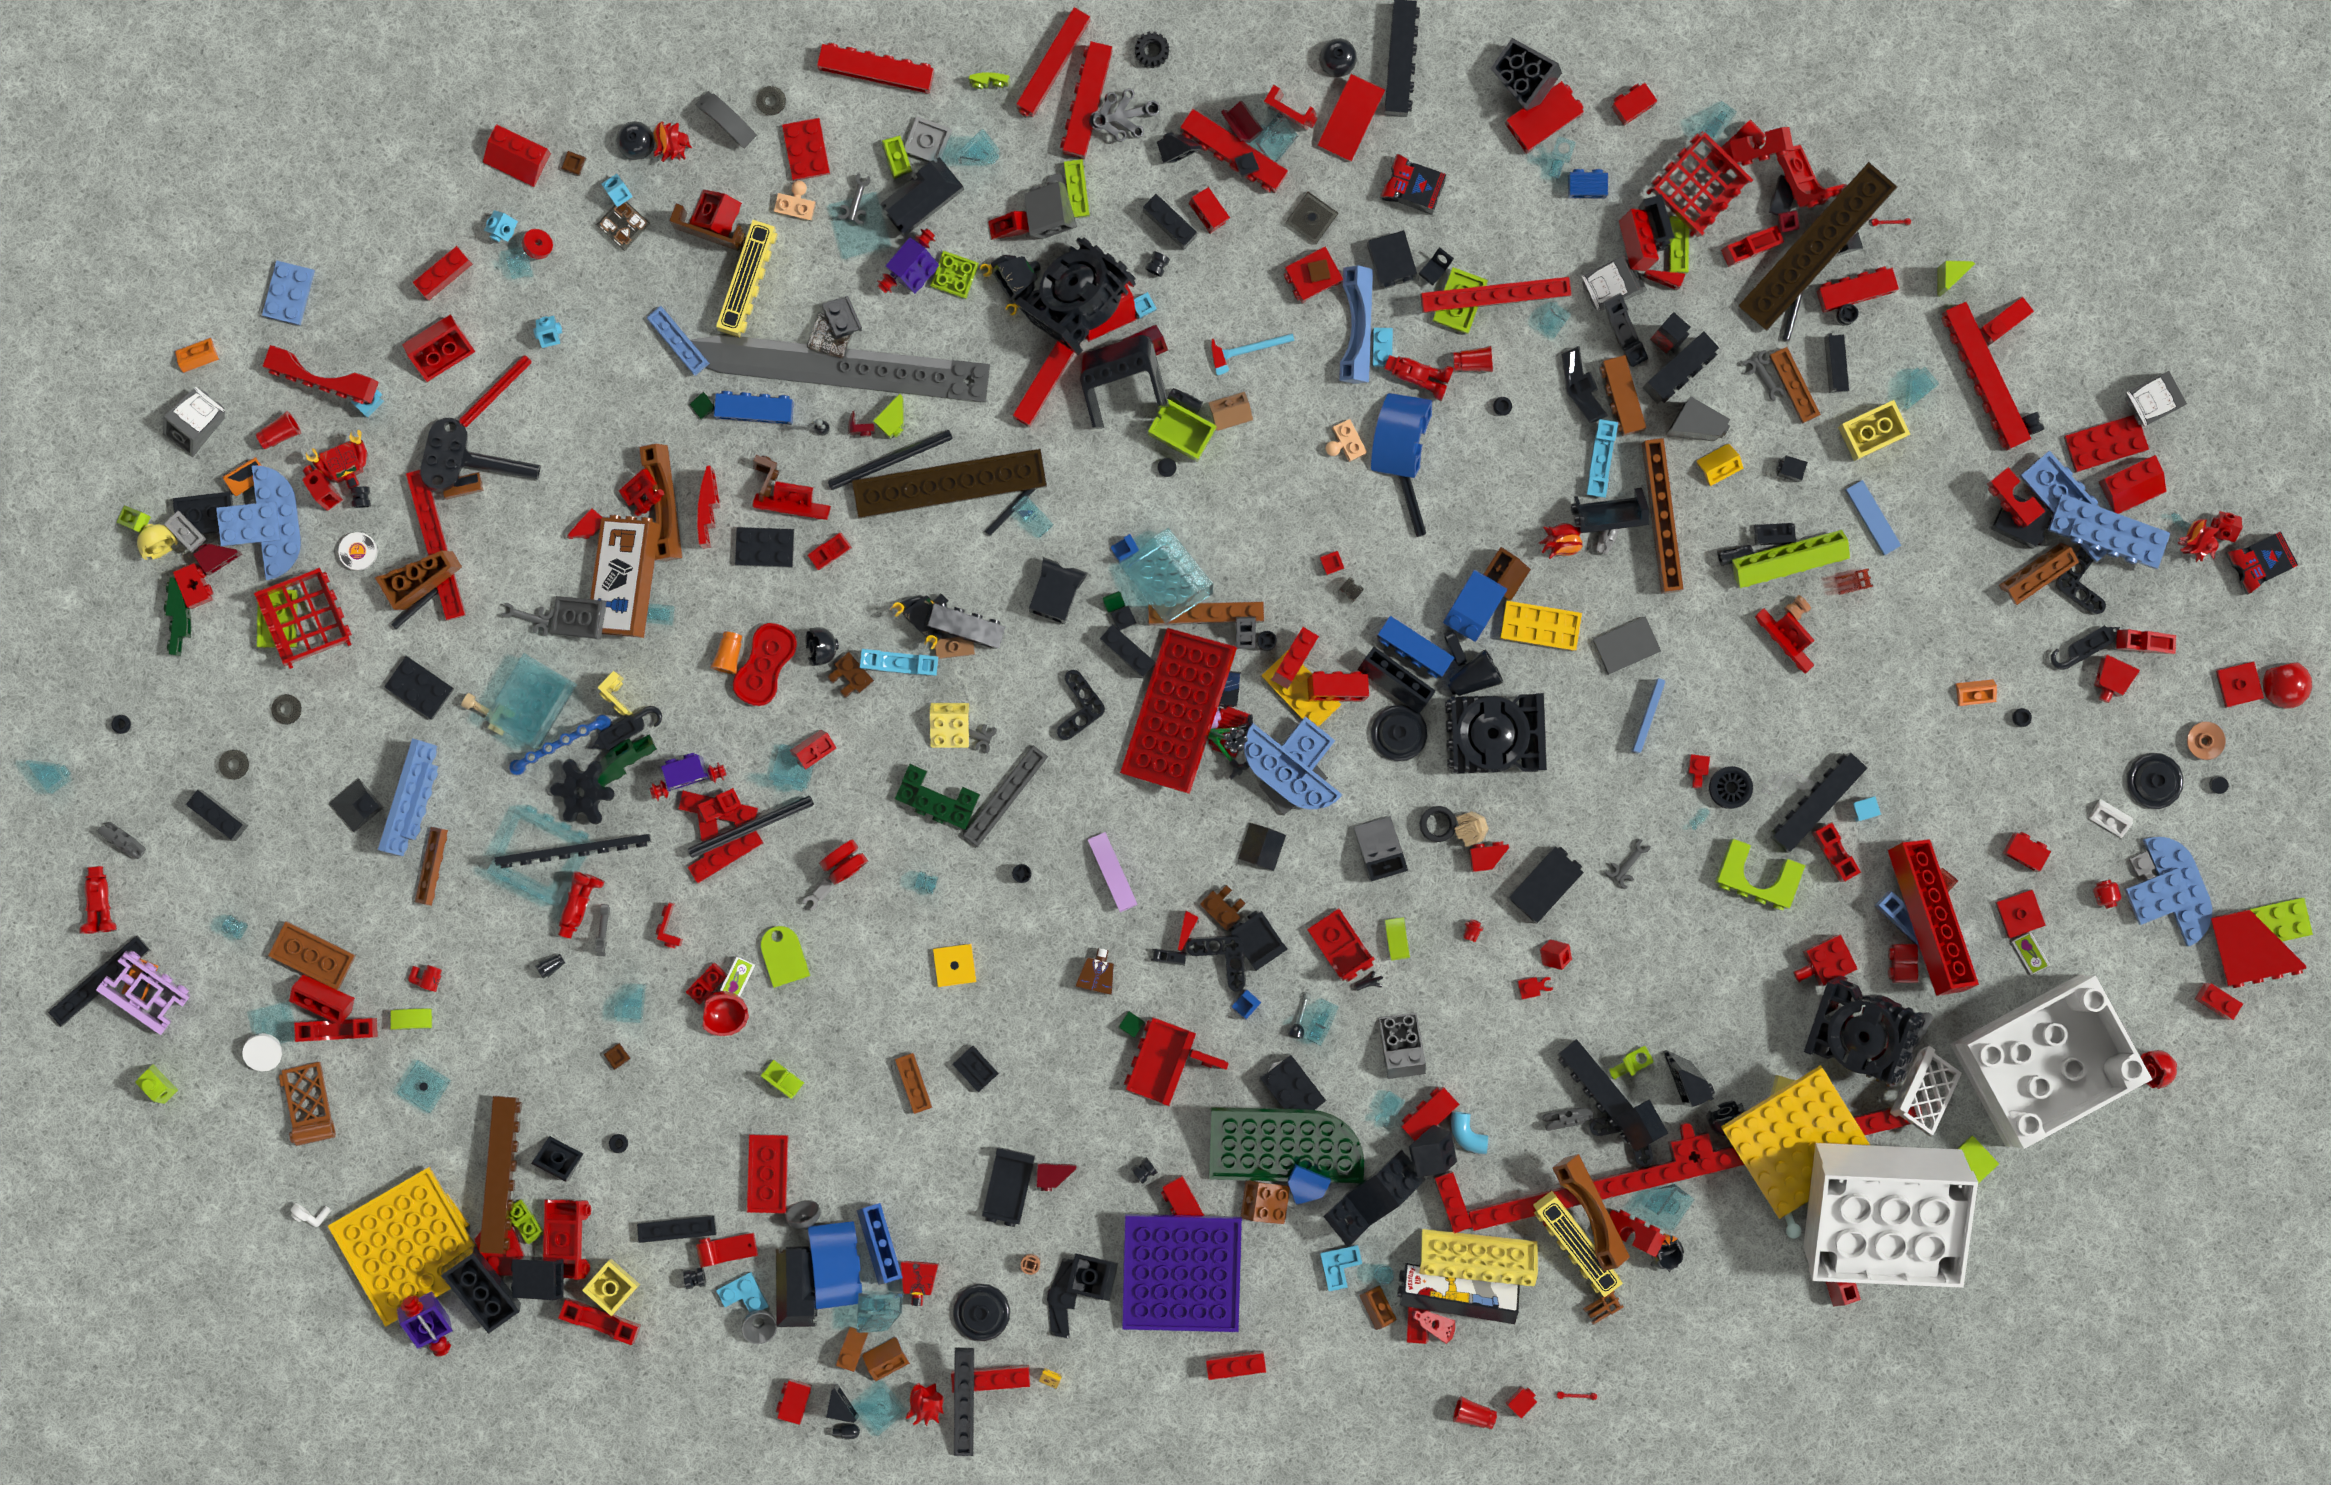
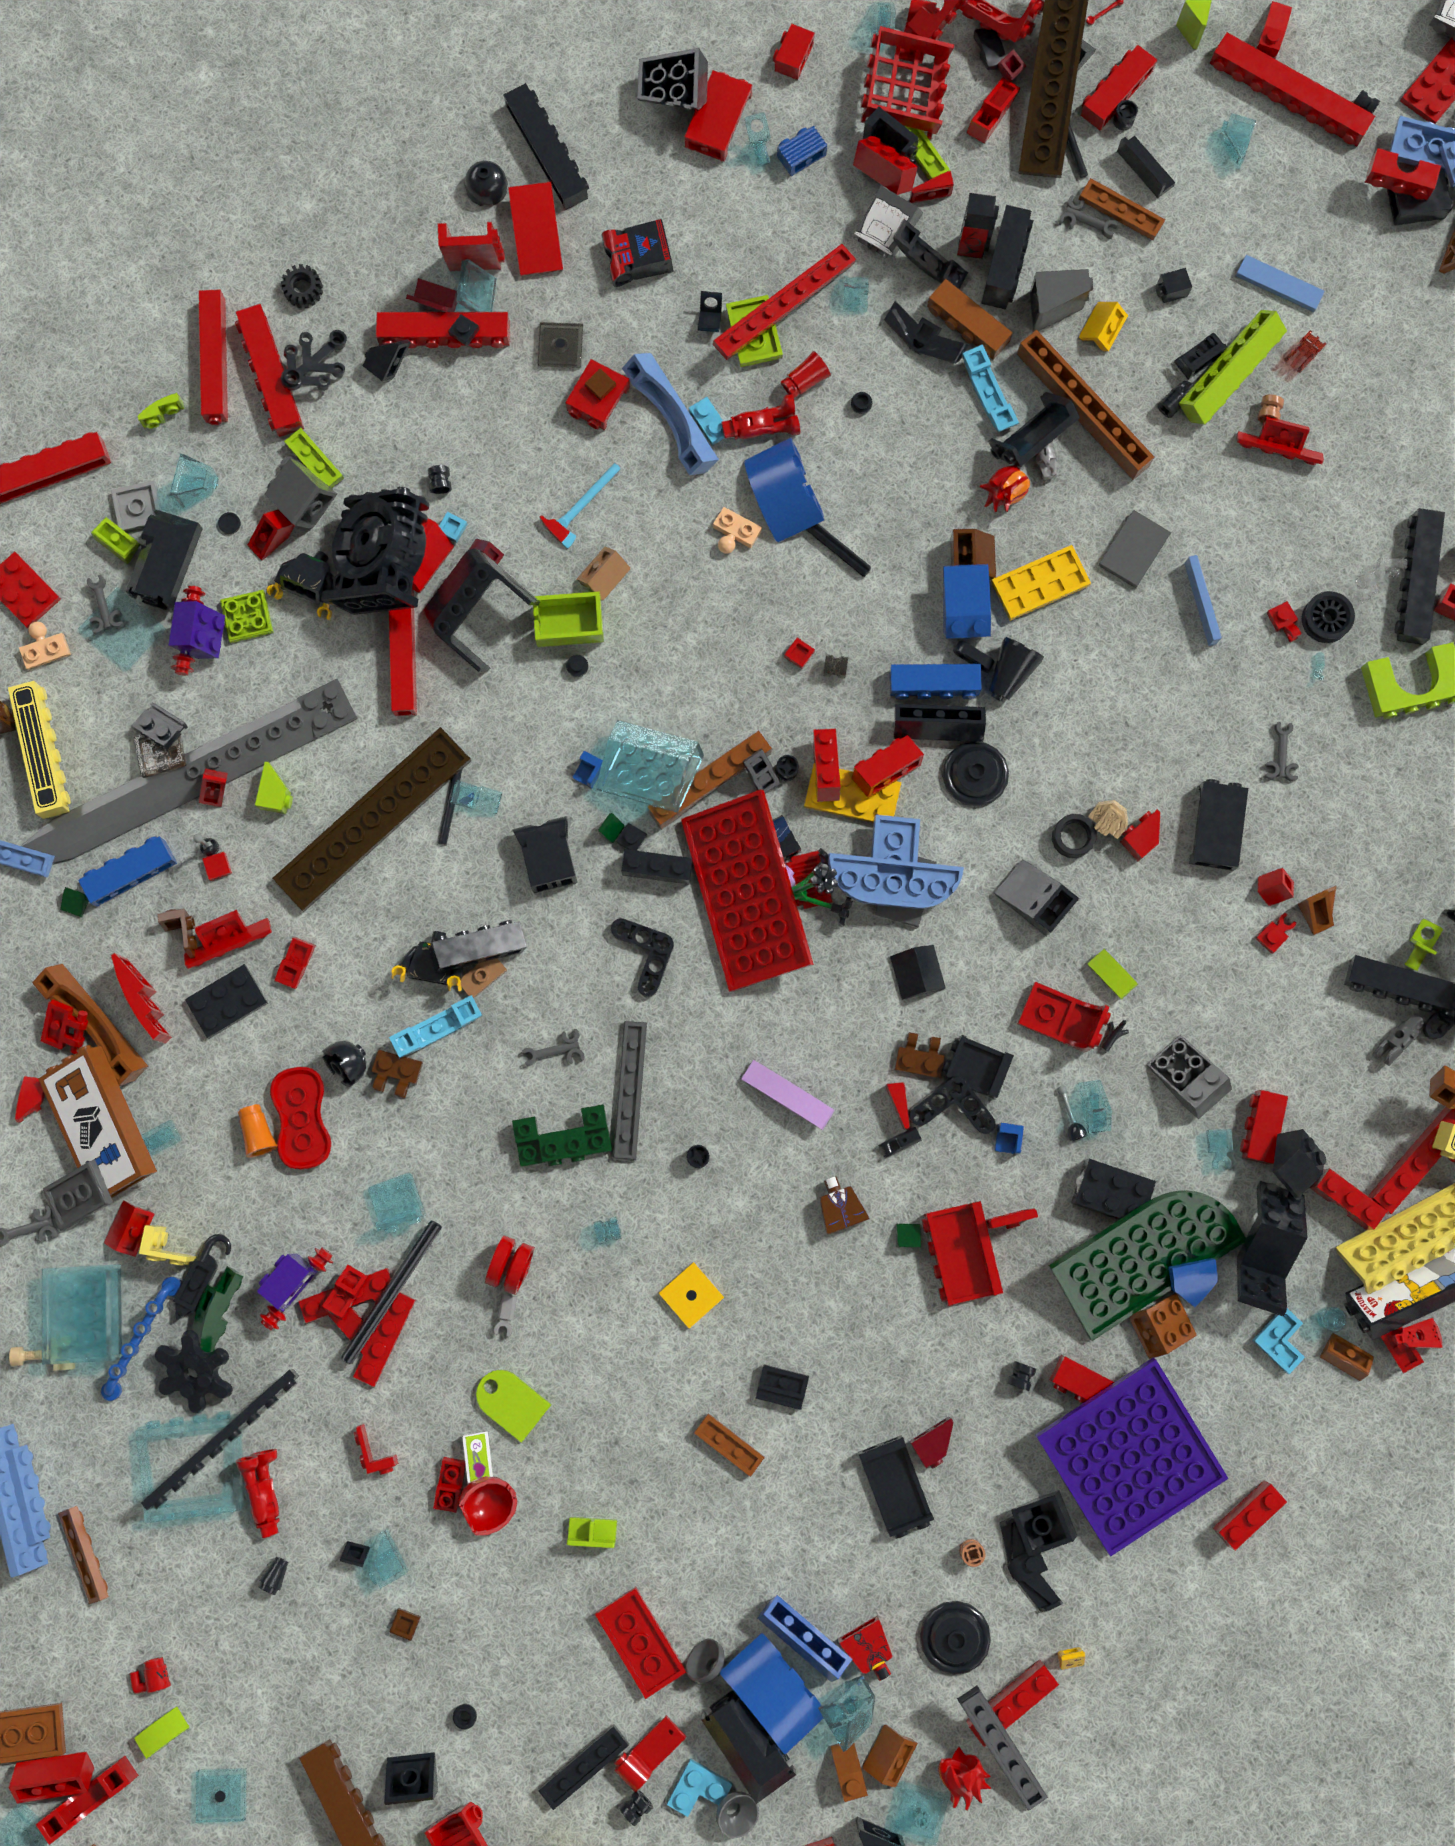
camera: 25 degrees left, 5 degrees down
(598, 663) = (128, 1228): none -> red panel
(600, 940) = (312, 1517): dark grey bar -> none
(613, 987) = (354, 1554): none -> black slope
(813, 749) = (405, 1170): red hinge -> none
(818, 445) = (217, 866): none -> red tile
(852, 387) = (213, 787): none -> red slope
(864, 430) = (251, 821): dark red plate -> none
(890, 459) = (298, 834): black axle -> none
(949, 725) = (527, 1056): light yellow bracket -> none
(985, 196) = (229, 523): none -> black piece
(1169, 221) = (425, 432): black brick -> none
(1185, 400) = (554, 588): black hinge -> none
(1209, 210) = (456, 398): red hinge -> none
(1392, 259) = (663, 333): black brick -> none
(1465, 1136) = (1315, 1125): medium azure cylinder -> none
(1466, 760) = (1105, 686): black brick -> none
(1472, 930) = (1179, 916): red hose -> none
(1576, 991) = (1319, 910): none -> dark orange slope
(1874, 430) = (1225, 201): light yellow brick -> none

